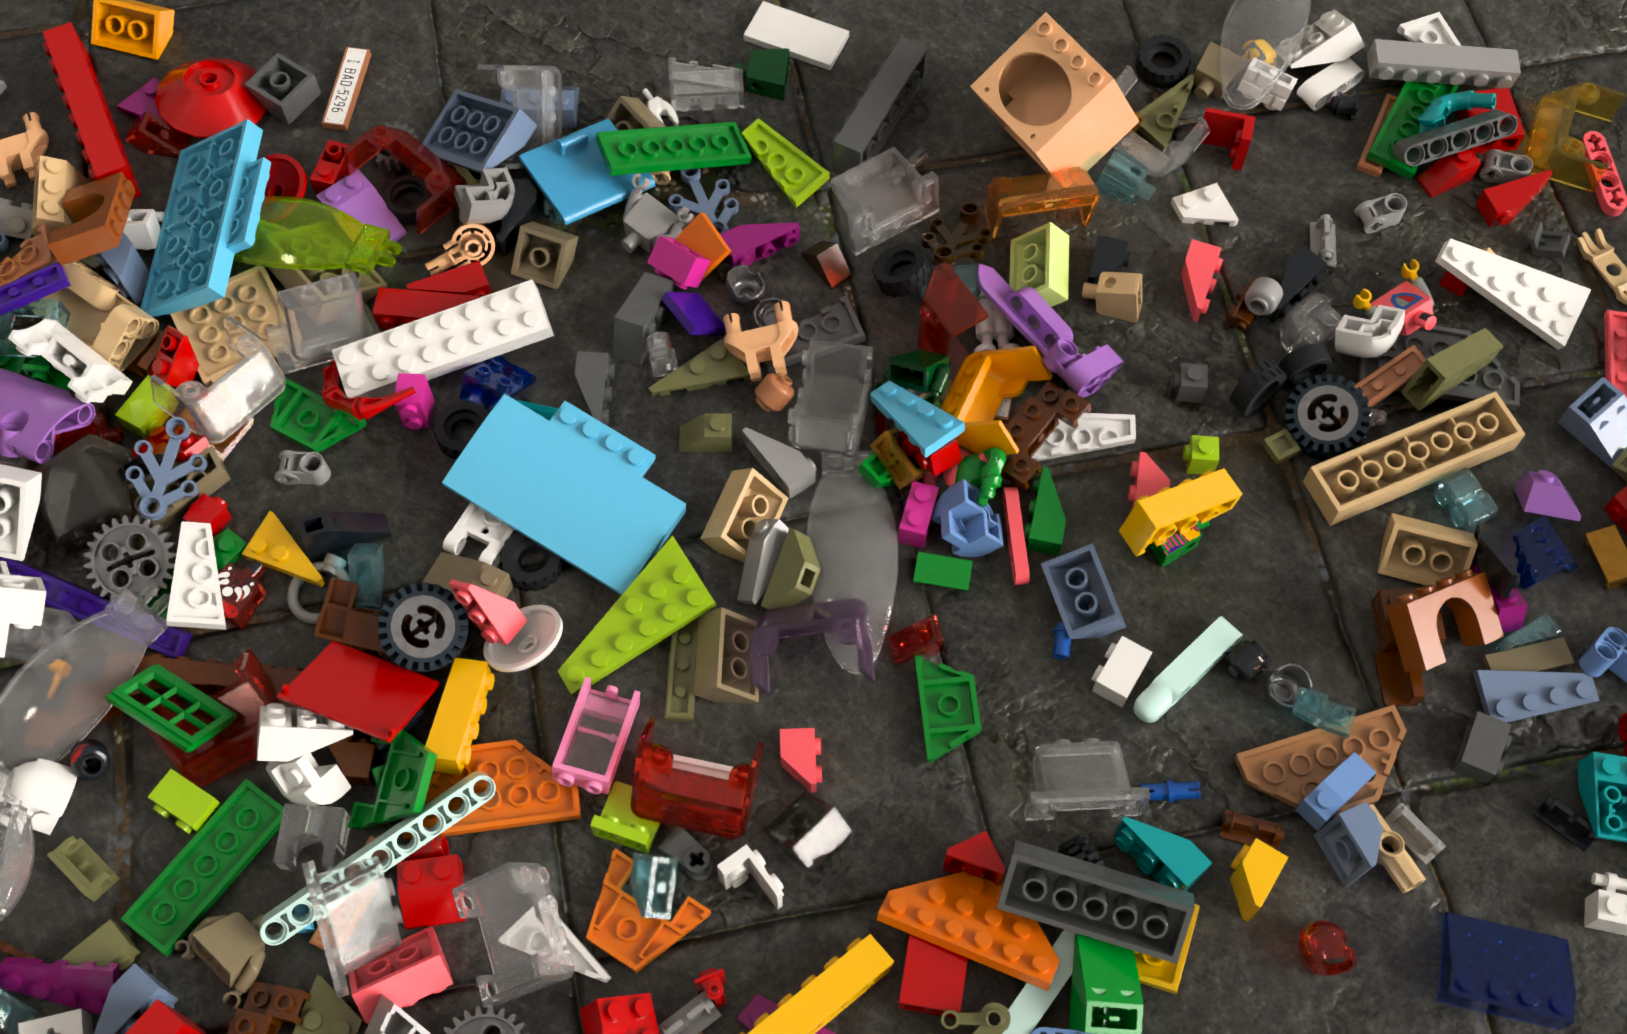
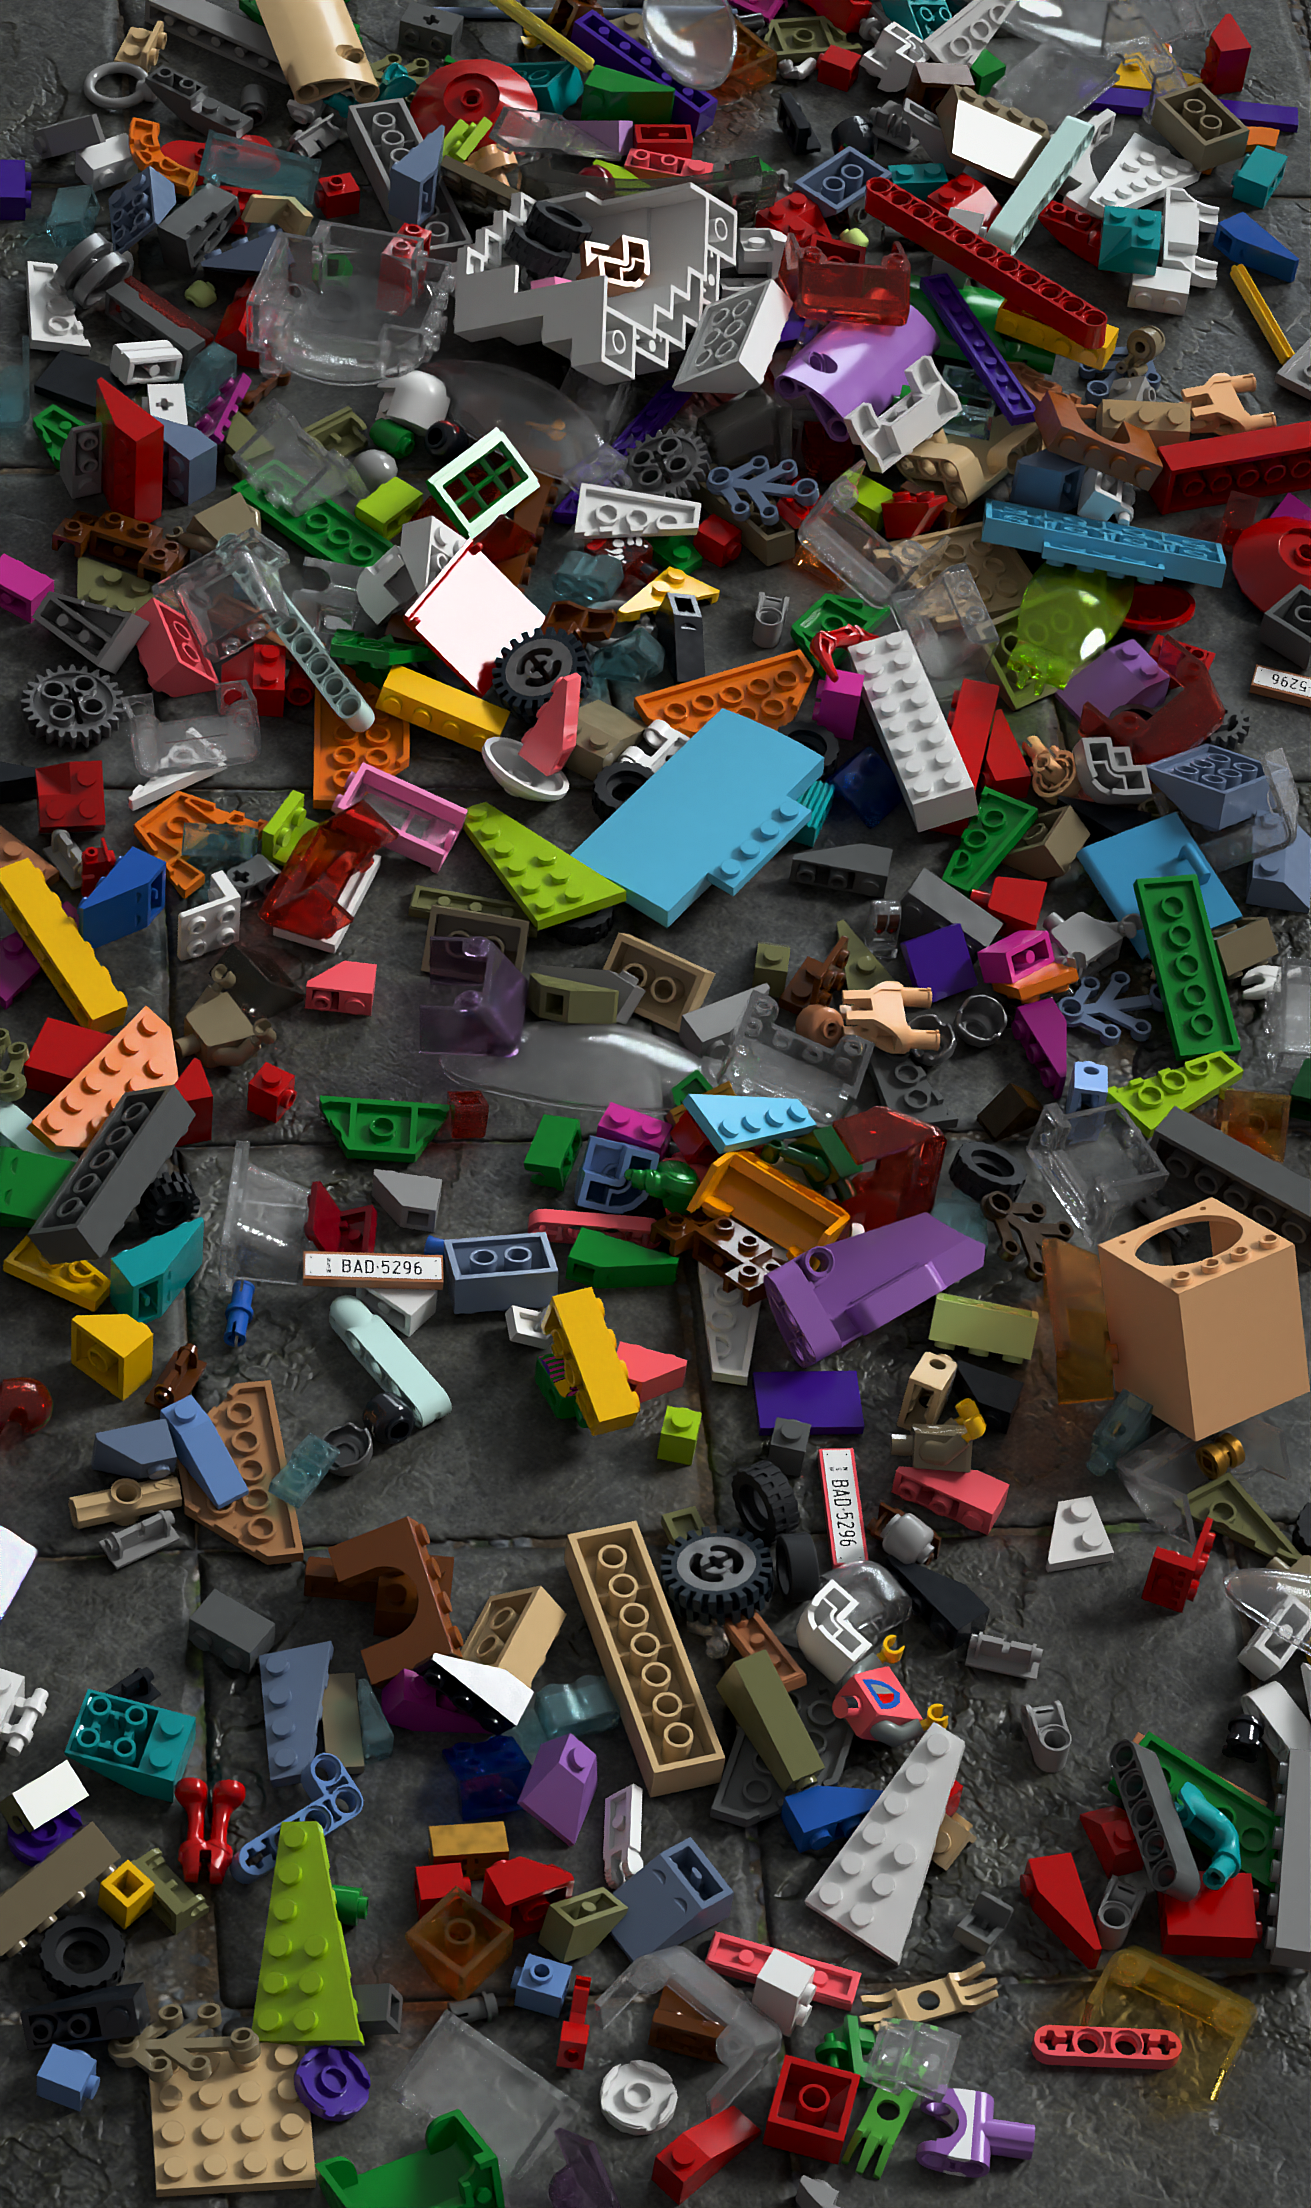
camera: 90 degrees right, 15 degrees down
(81, 812) = (392, 438): none -> green brick
(126, 825) = (375, 468): none -> light grey hair
(147, 890) = (294, 465): none -> clear windscreen
(266, 616) = (587, 576): none -> clear light blue brick
(408, 485) = (761, 691): none -> orange plate
(557, 292) = (988, 840): none -> green wing
(618, 271) = (1013, 903): none -> red torso
(725, 394) = (816, 980): none -> reddish brown bracket
(741, 958) = (123, 899): none -> blue slope
(806, 113) = (1255, 1119): none -> clear orange slope
(811, 210) = (1087, 1086): none -> light blue torso
(872, 852) = (219, 1029): none -> dark tan torso
(933, 798) = (271, 1092): none -> red brick
(1021, 673) = (408, 1198): none -> light grey slope
(1073, 717) = (336, 1229): none -> dark red bracket
(1121, 685) = (372, 1270): none -> tile
(1123, 566) = (525, 1327): none -> white bracket
(1140, 381) = (818, 1398): none -> dark purple tile
(1172, 280) = (945, 1445): none -> dark tan torso
(1229, 348) = (842, 1506): none -> white tile
(1485, 315) = (825, 1814): none -> blue slope
(1560, 458) = (622, 1835): none -> white hinge

